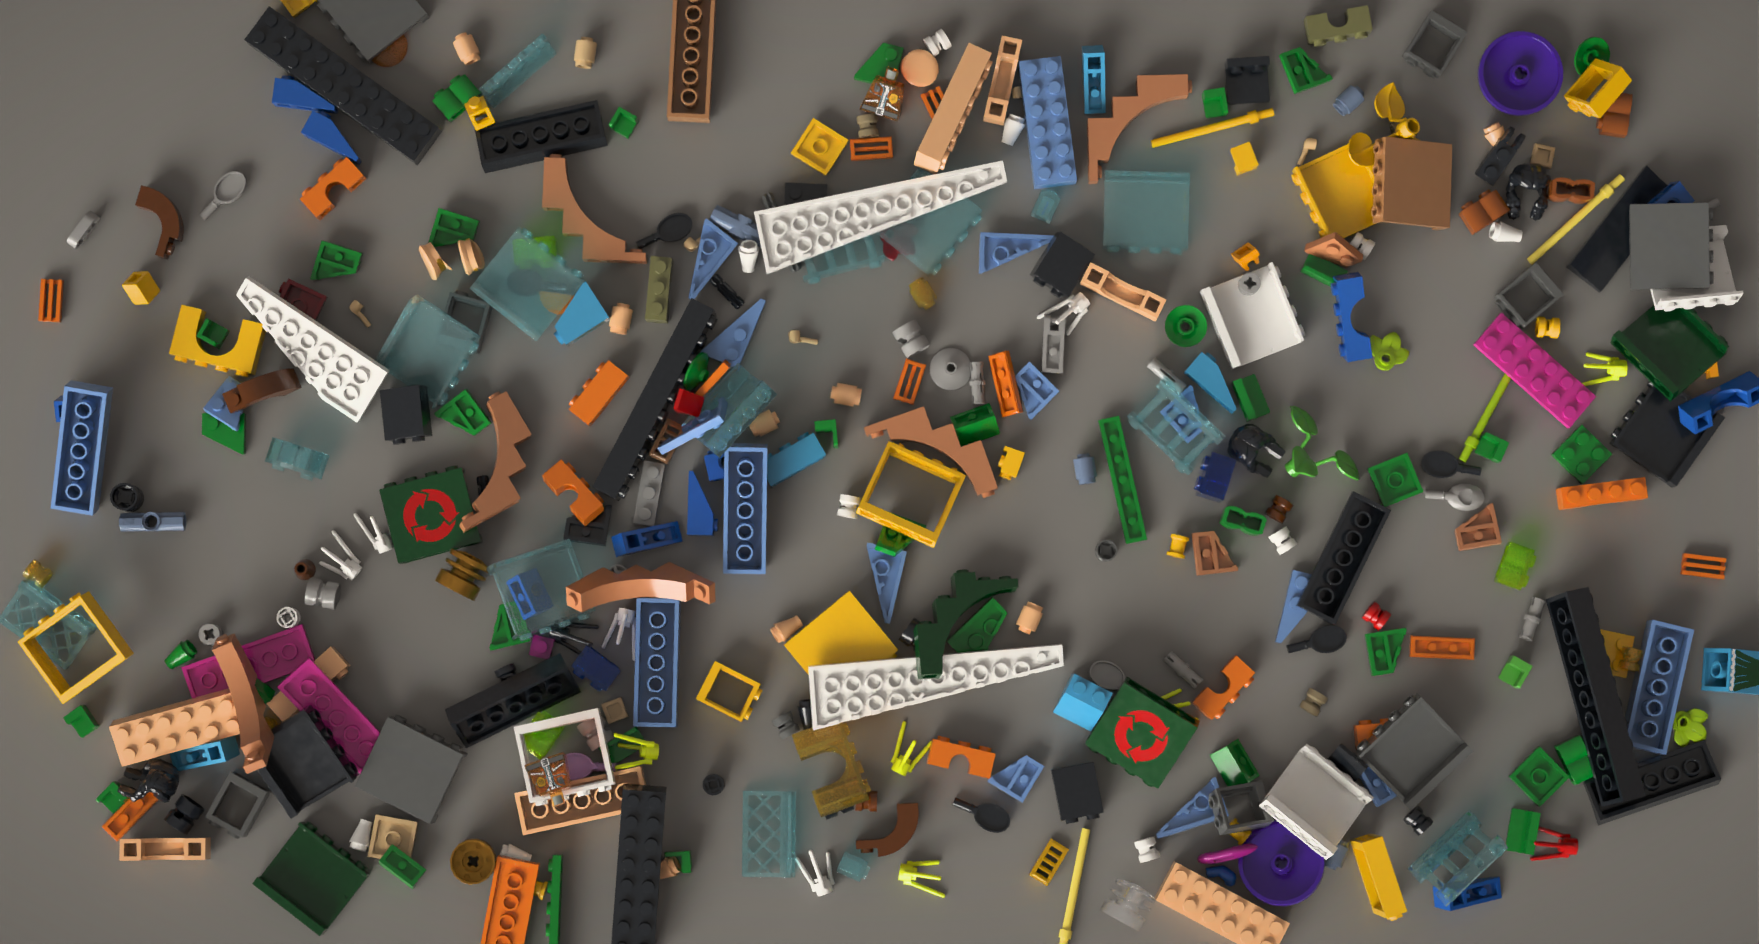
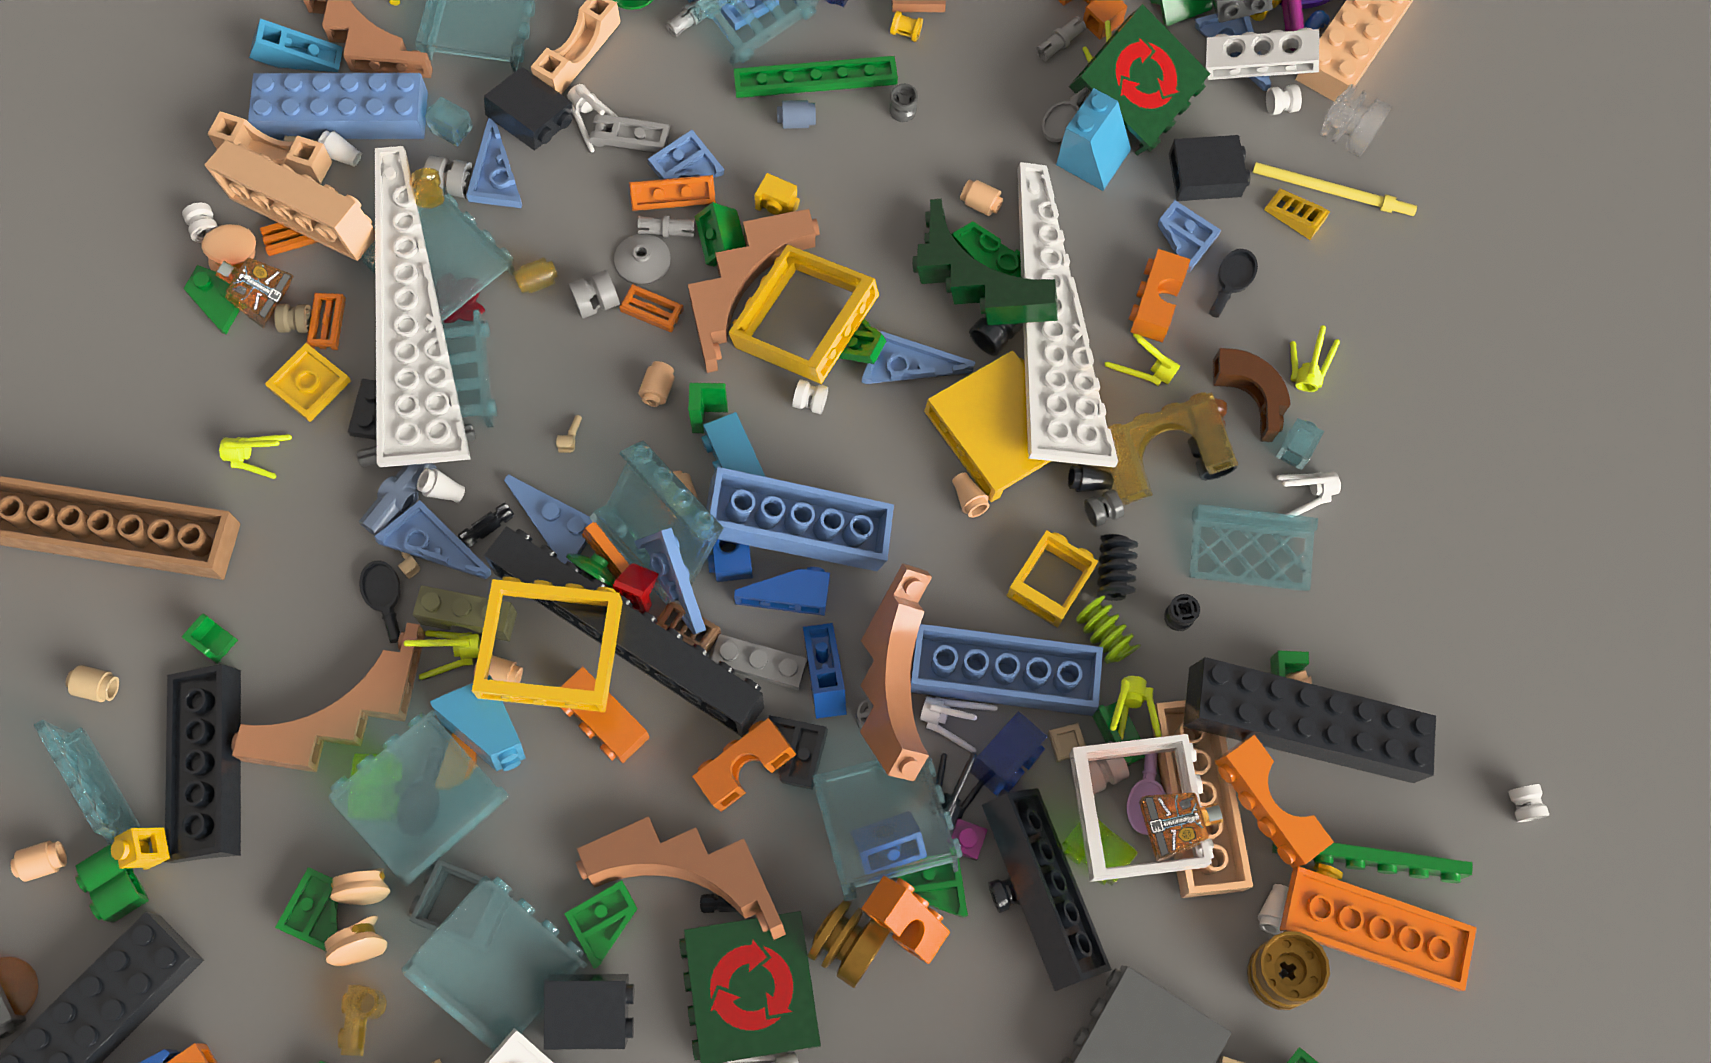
camera: 90 degrees left, 15 degrees down
(379, 269) = (352, 1036): none -> clear yellow plate
(480, 609) = (908, 917): none -> orange arch
(597, 827) = (1247, 770): none -> orange arch
(637, 293) = (464, 646): none -> neon yellow plant
(666, 362) = (540, 694): none -> yellow window
(693, 732) = (1106, 631): none -> lime piece
(741, 737) = (1116, 566): none -> black piece
(762, 109) = (240, 449): none -> neon yellow plant
(975, 204) = (427, 192): none -> clear yellow wheel
(994, 208) = (454, 176): none -> light grey wheel
(1171, 795) = (1275, 62): none -> white brick

